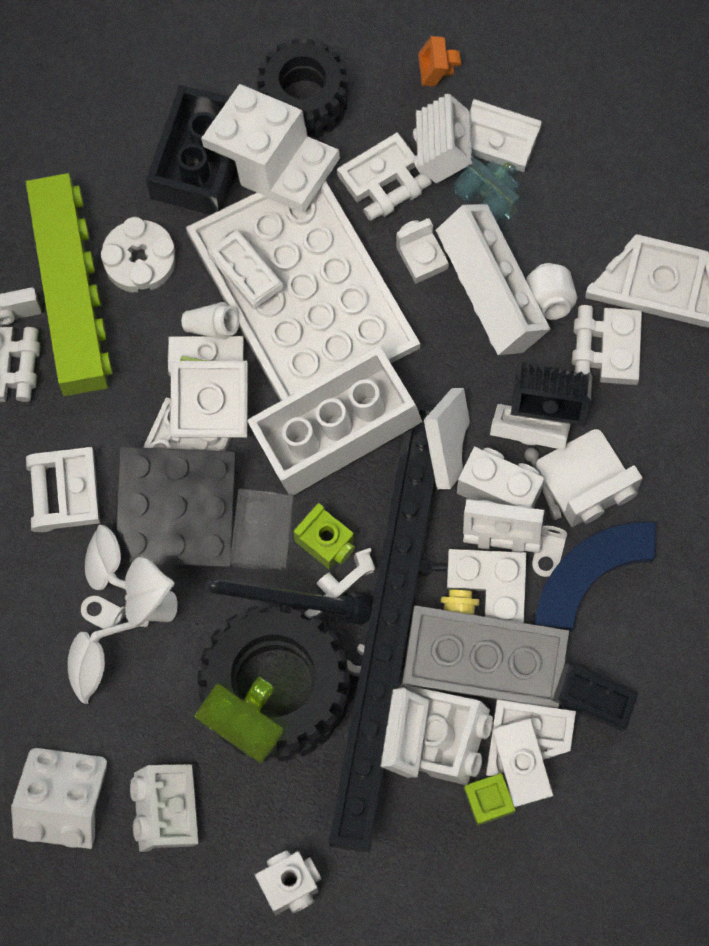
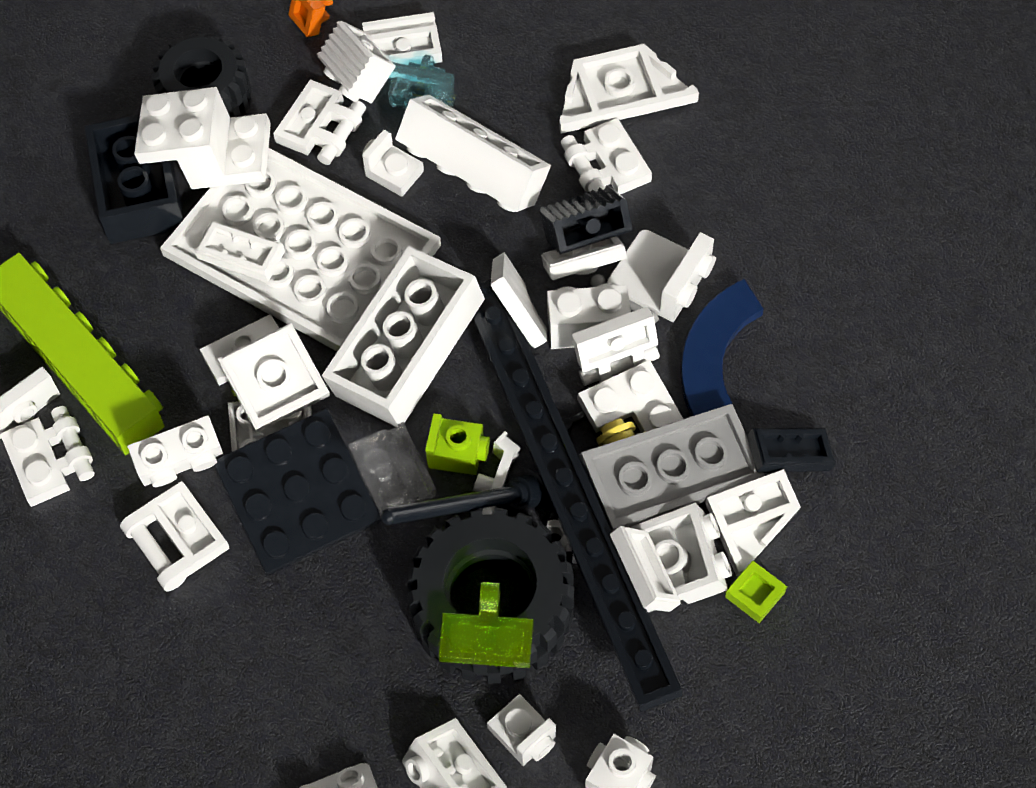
camera: 30 degrees left, 10 degrees down
(108, 426) = (176, 451): none -> white plate
(110, 615) = (289, 629): white piece -> none
(132, 236) = (125, 276): white plate -> none
(146, 600) = (321, 561): white plant -> none
(212, 320) = (234, 312): white cone -> none
(238, 804) = (523, 730): none -> white bracket
(522, 762) = (765, 539): white plate -> none
(551, 546) = (667, 350): white piece -> none
(553, 290) = (531, 134): white head -> none

